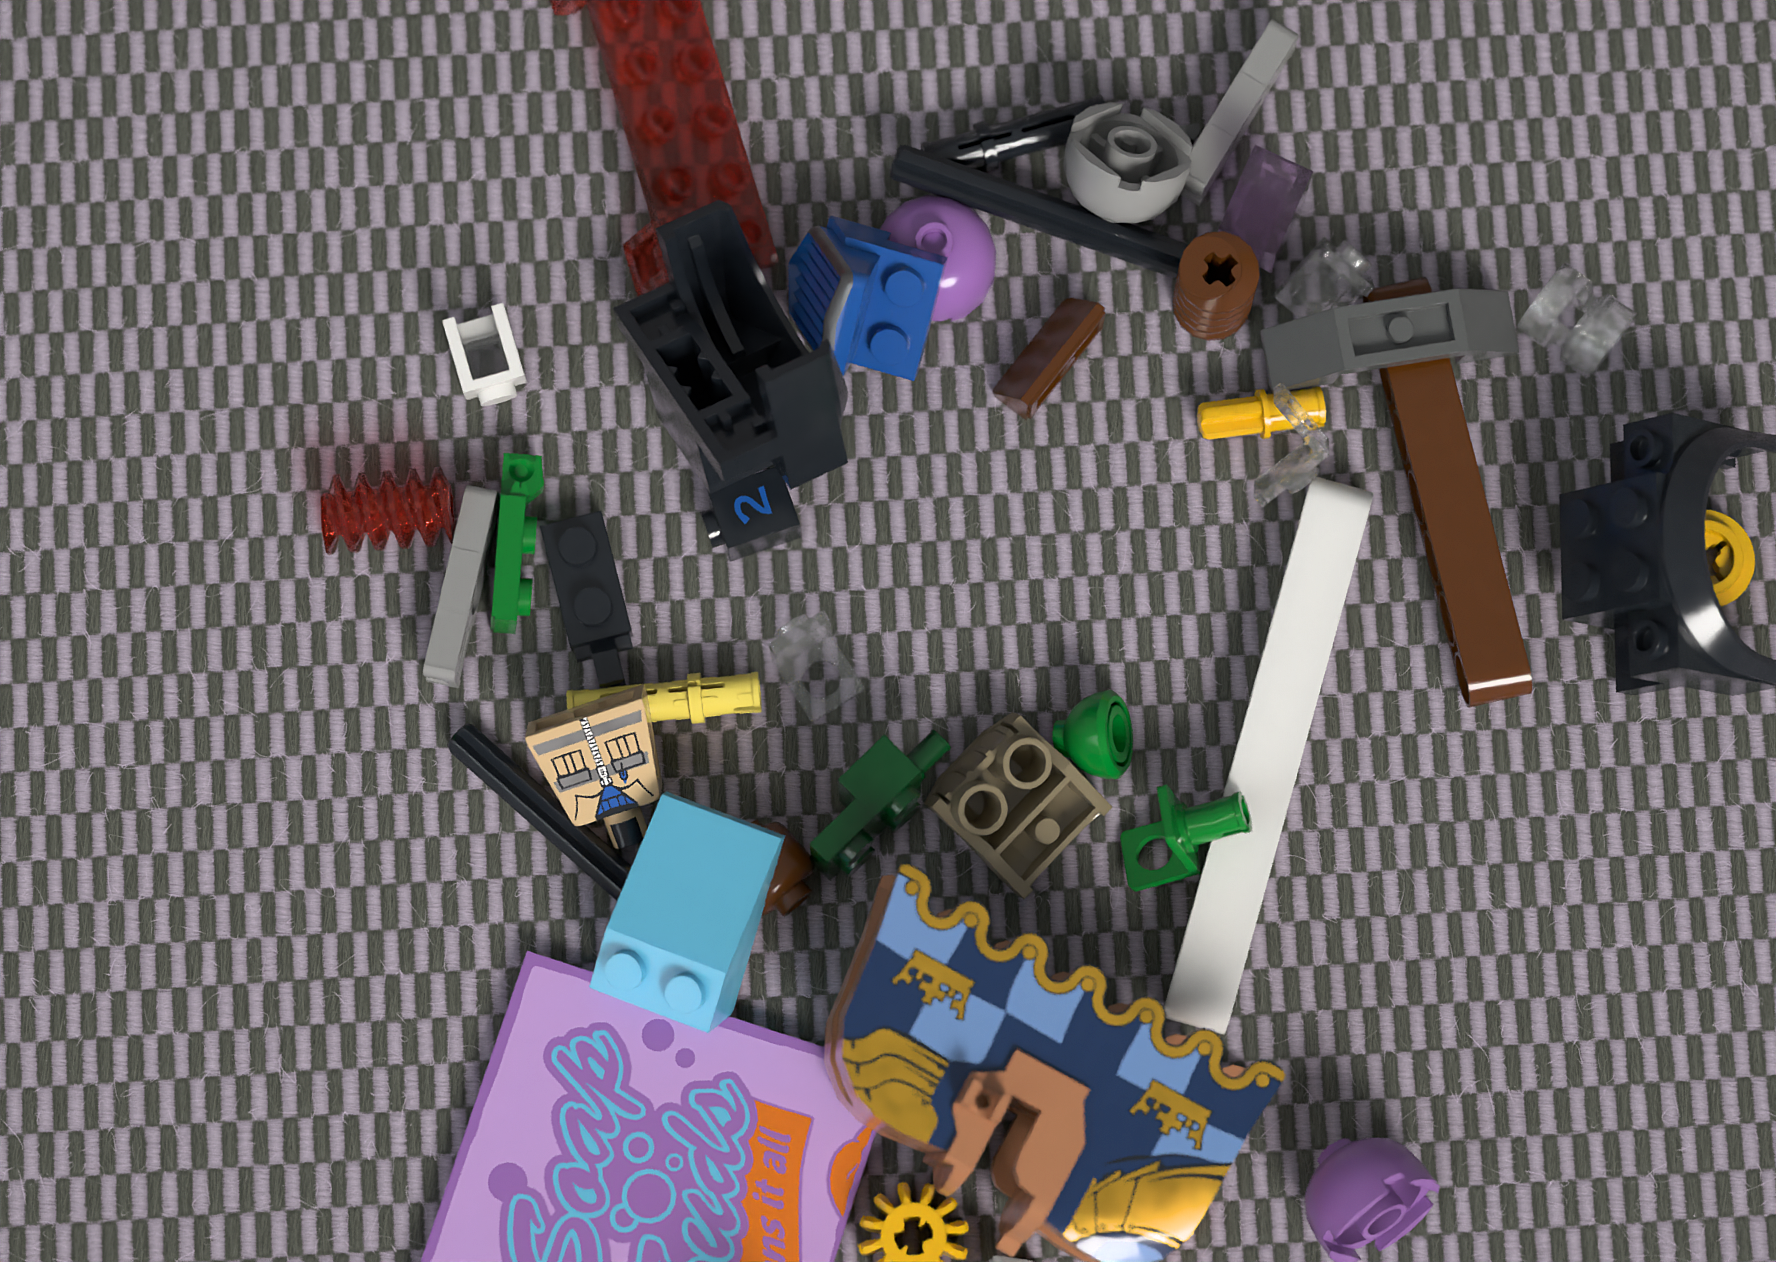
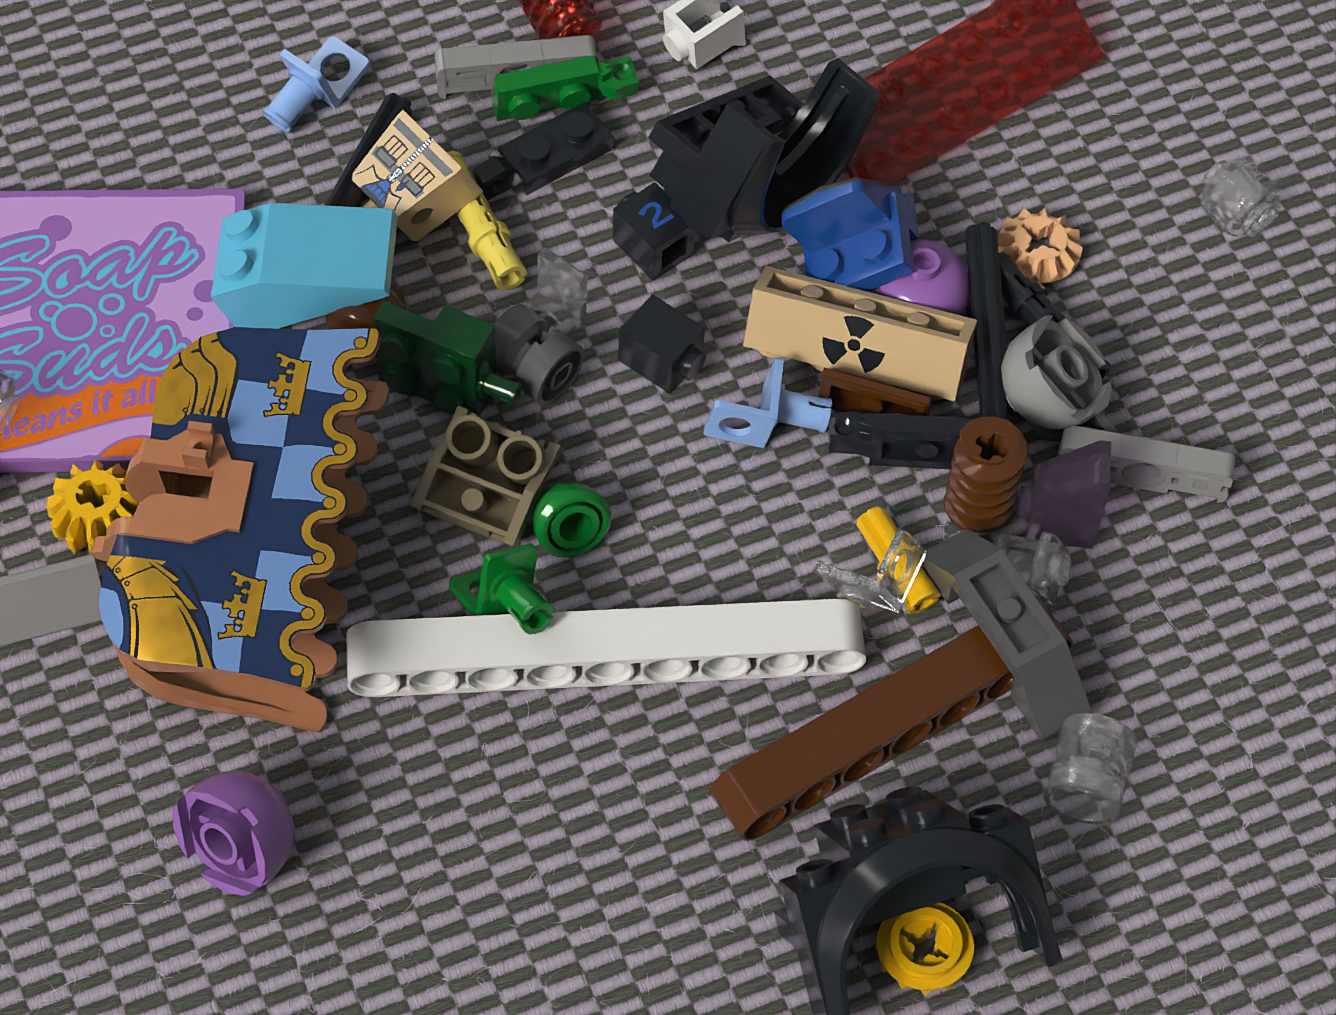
camera: 65 degrees right, 20 degrees down
(402, 827) = (308, 83): none -> light blue bracket
(889, 681) = (534, 356): none -> dark grey wheel
(902, 127) = (1044, 263): none -> light nougat gear
(911, 558) = (662, 344): none -> black brick
(981, 343) = (859, 333): none -> tan brick
(1032, 467) = (776, 407): none -> light blue bracket
(1119, 349) = (896, 438): none -> black hinge

